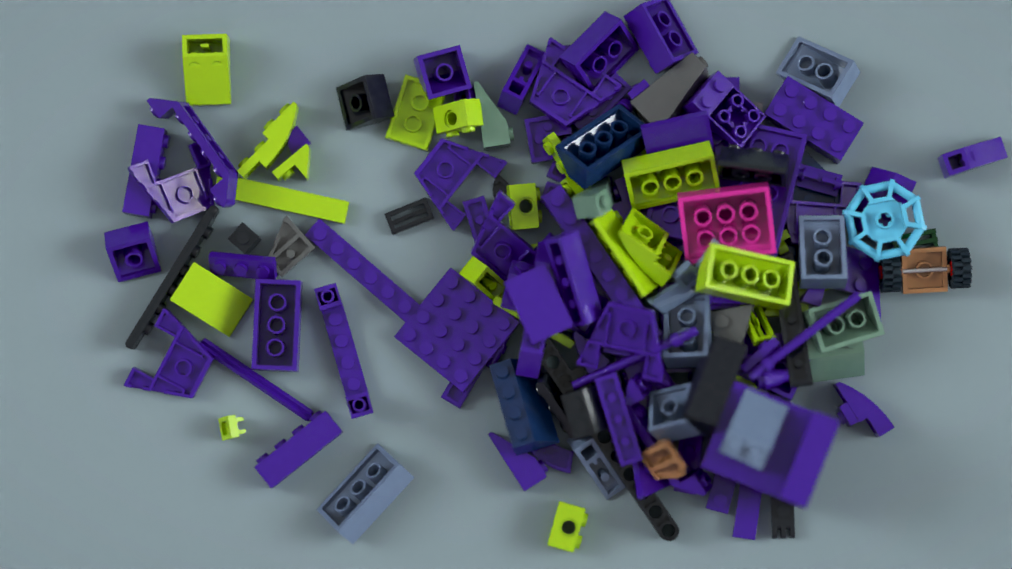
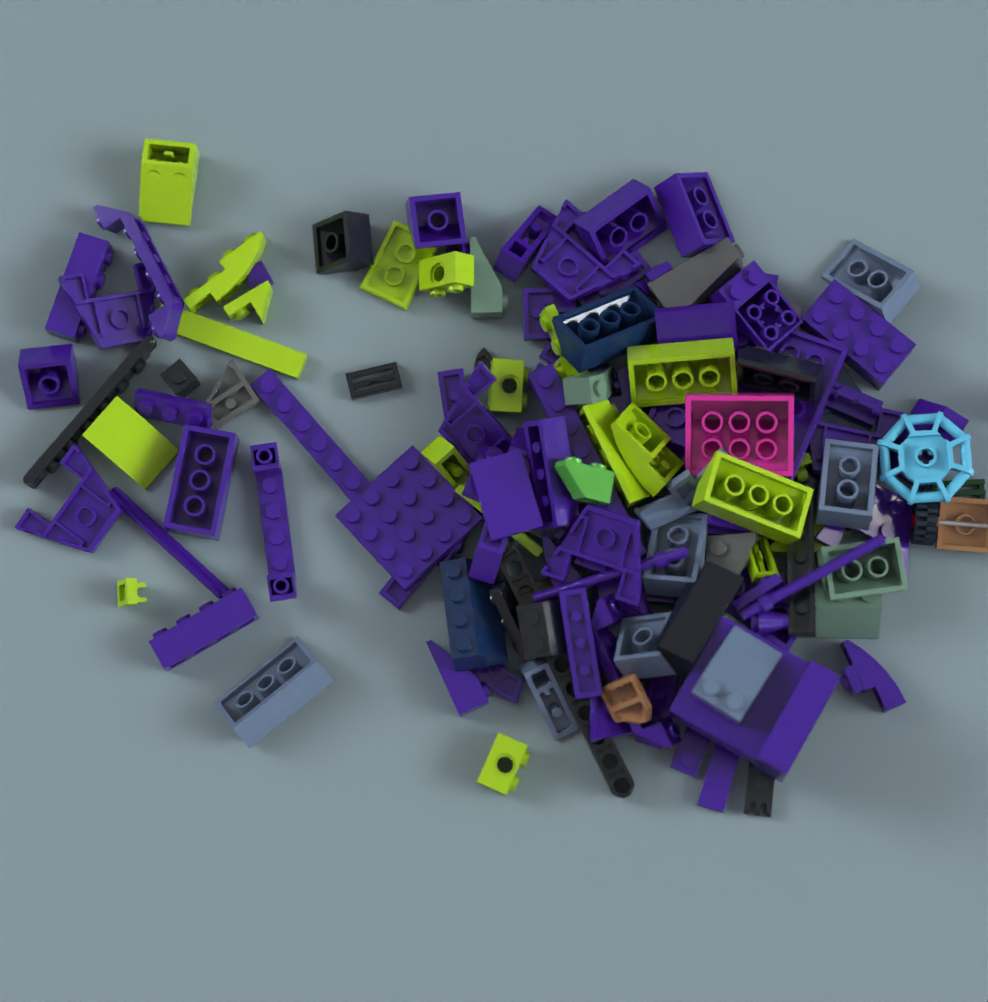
camera: 15 degrees right, 5 degrees down
(445, 172) = (424, 334): dark purple wing -> none
(605, 285) = (586, 482): none -> bright green slope

